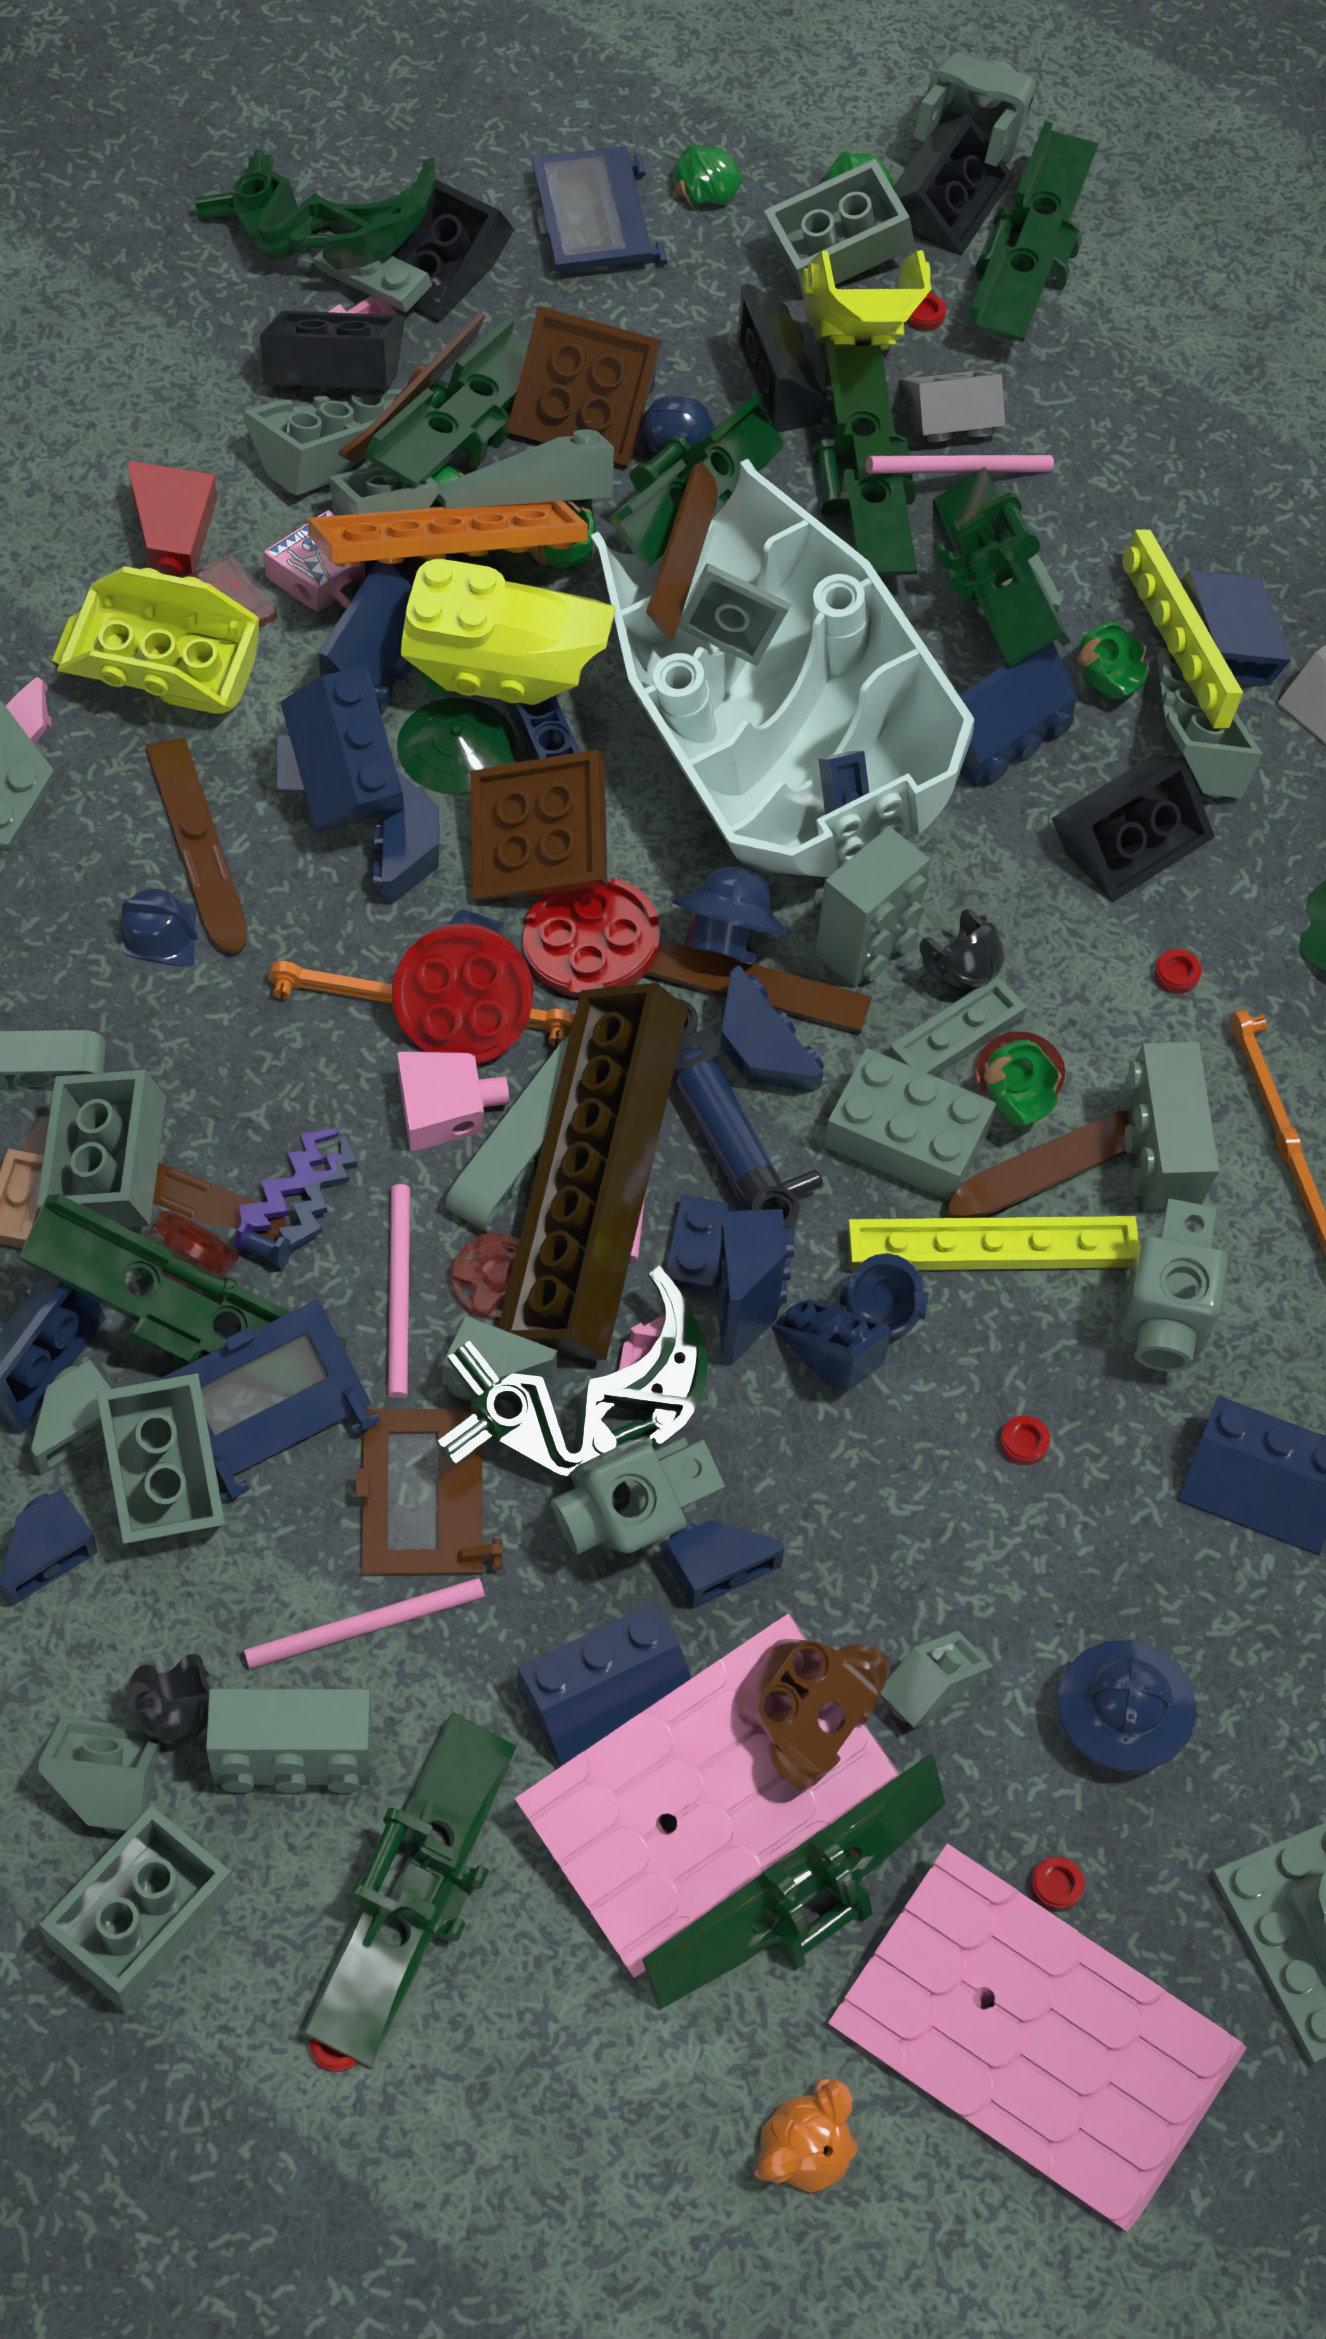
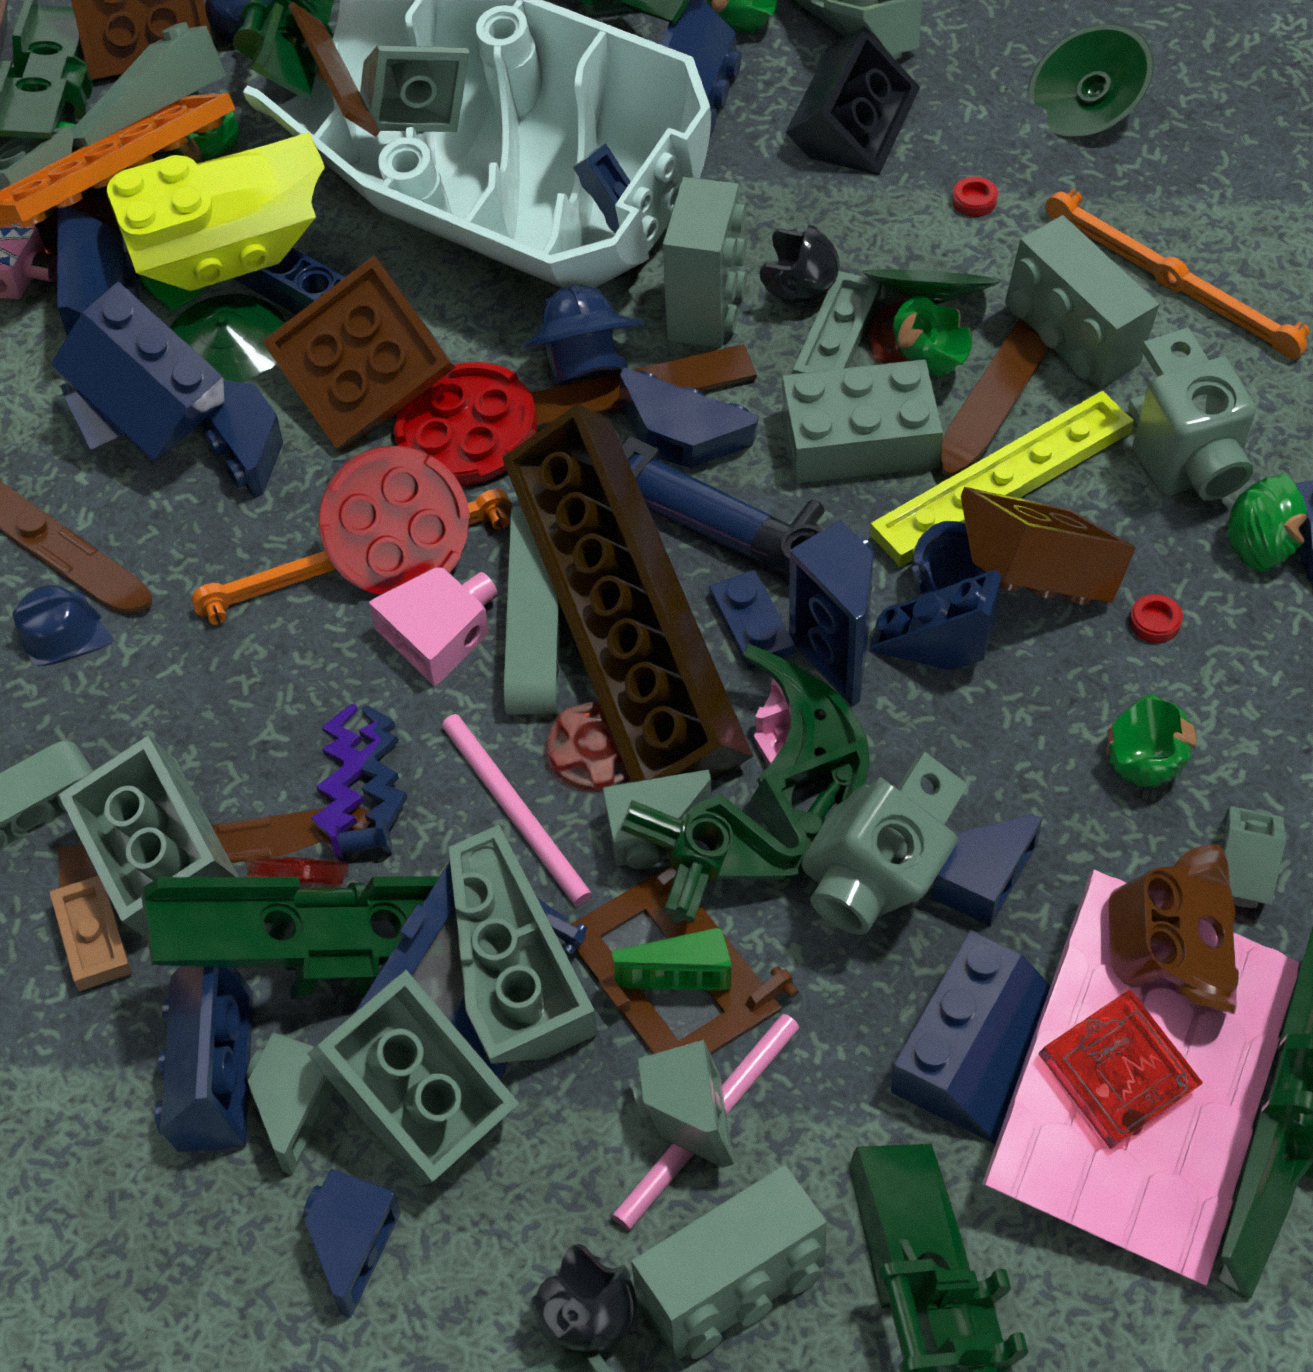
camera: 25 degrees left, 5 degrees down
(295, 1422) = (513, 966): none -> sand green wedge
(353, 1598) = (686, 1101): none -> sand green slope
(425, 1490) = (677, 963): none -> green slope
(683, 1777) = (1120, 1068): none -> clear red tile
(925, 1540) = (1150, 742): none -> green hair
(960, 1324) = (1044, 547): none -> reddish brown slope
(1064, 1030) = (932, 284): none -> dark green hat
(1173, 1413) = (1267, 522): none -> green hair

